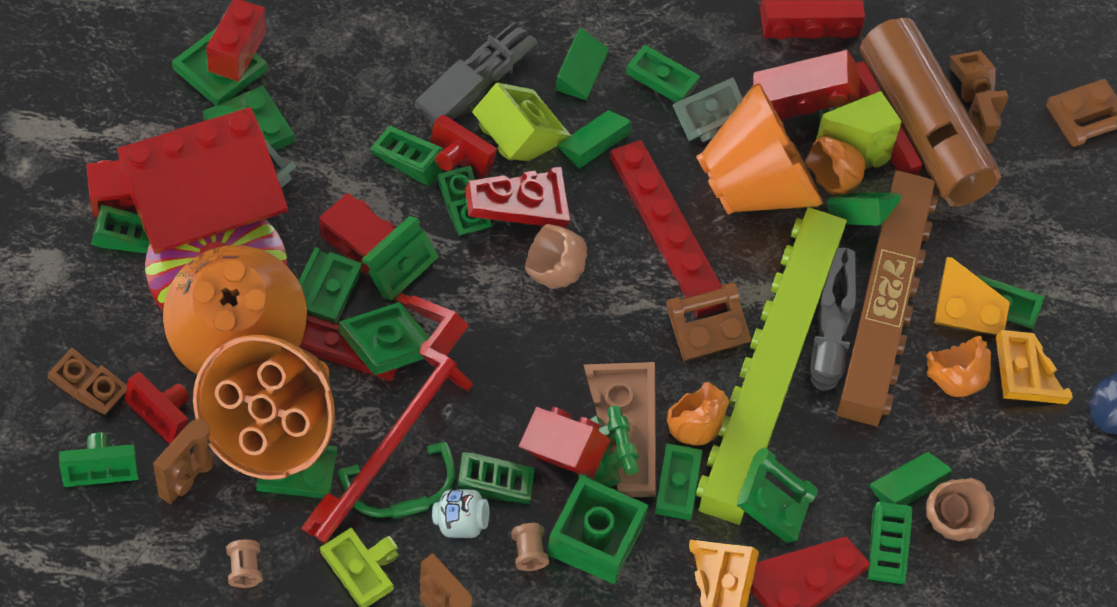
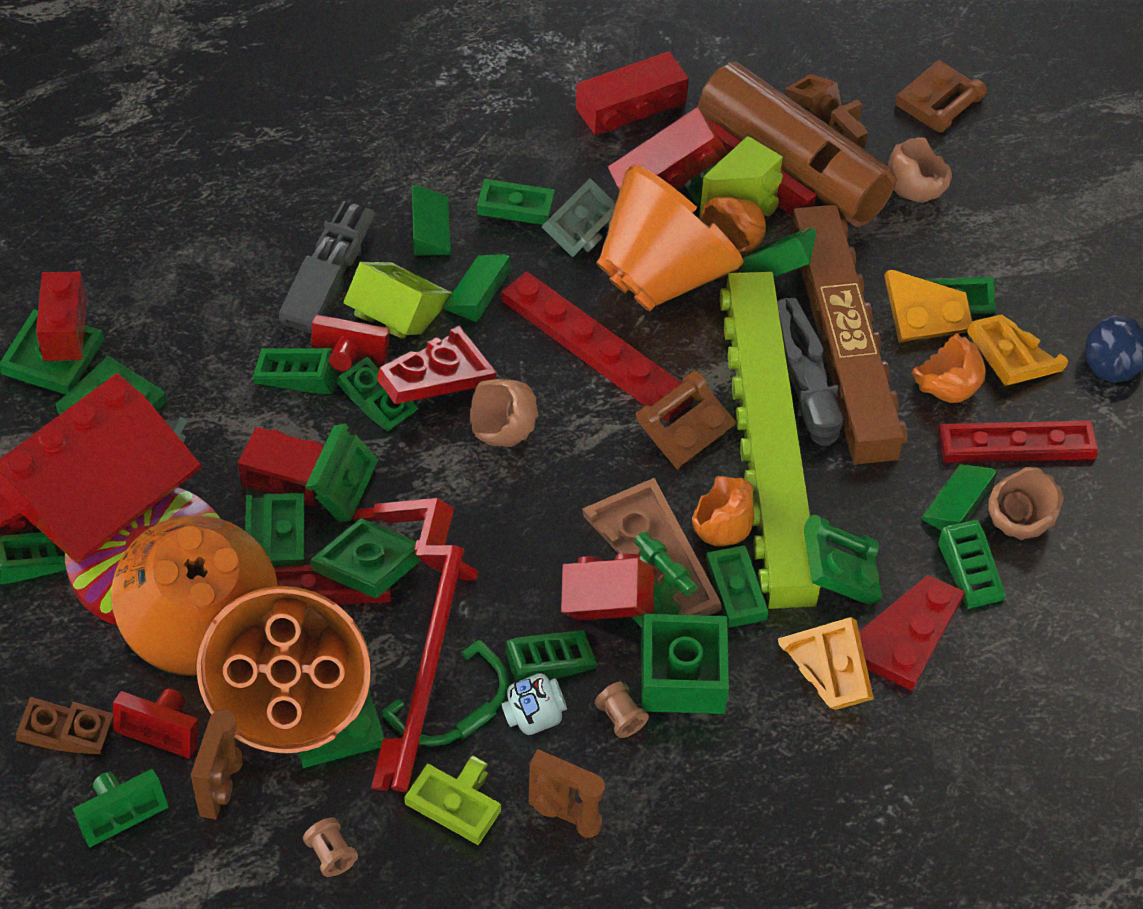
camera: 20 degrees left, 5 degrees down
(990, 451) = (1018, 441): none -> red tile
(1027, 175) = (918, 171): none -> nougat hair

